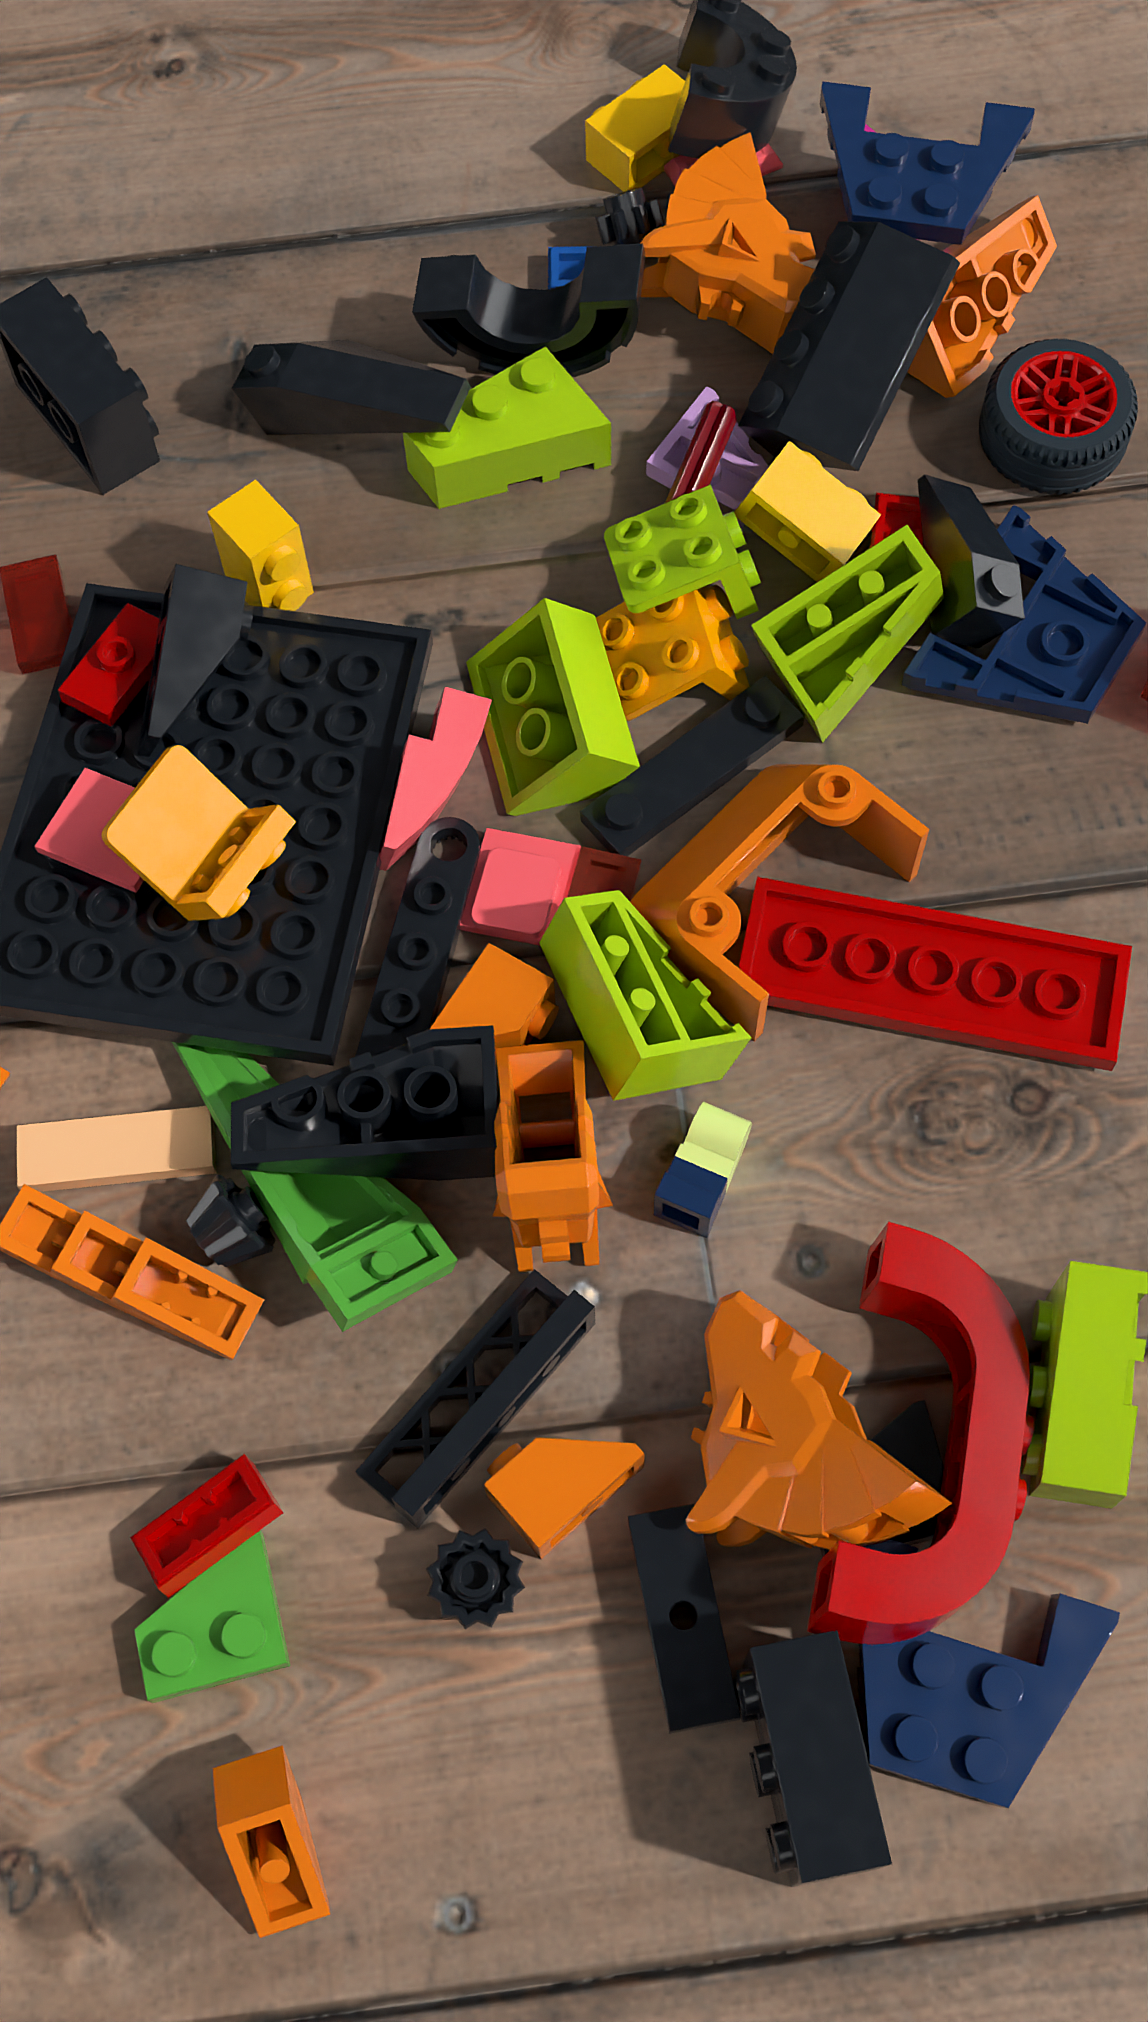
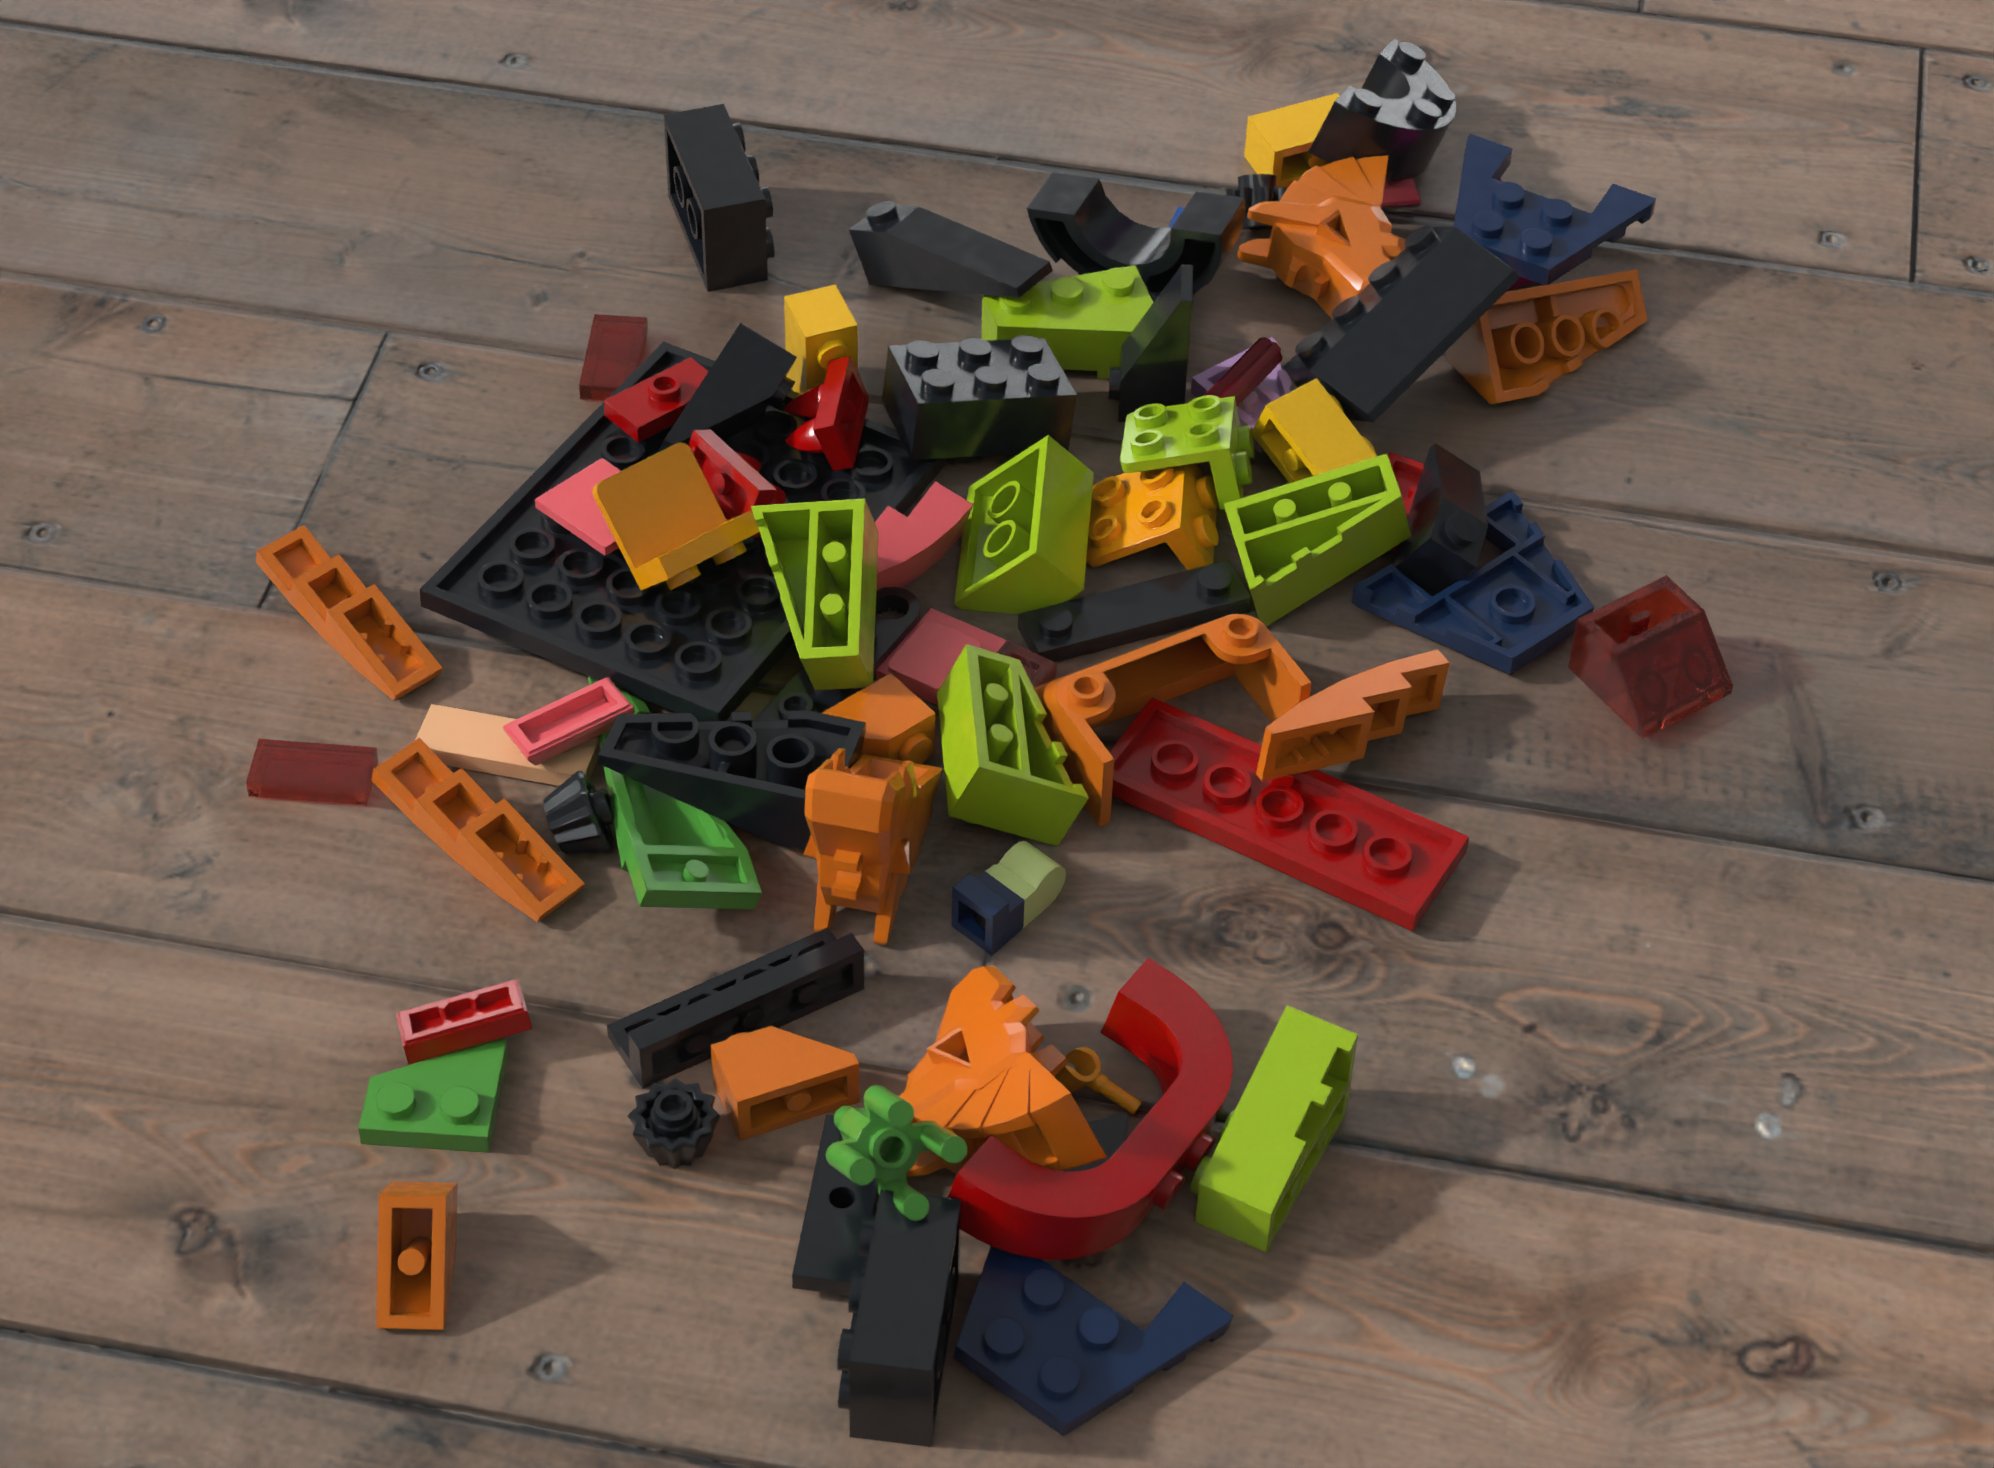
camera: 15 degrees right, 20 degrees down
(174, 1109) = (568, 721): none -> coral tile
(224, 746) = (732, 476): none -> red tile
(309, 617) = (835, 414): none -> red tile
(391, 870) = (827, 585): none -> lime wedge
(445, 561) = (977, 397): none -> black brick
(612, 453) = (1156, 351): none -> black slope
(734, 1592) = (885, 1145): none -> bright green plant
(868, 1365) = (1089, 1075): none -> light orange hand
(971, 840) = (1342, 718): none -> orange slope
(1057, 416) = (1582, 437): black wheel -> none

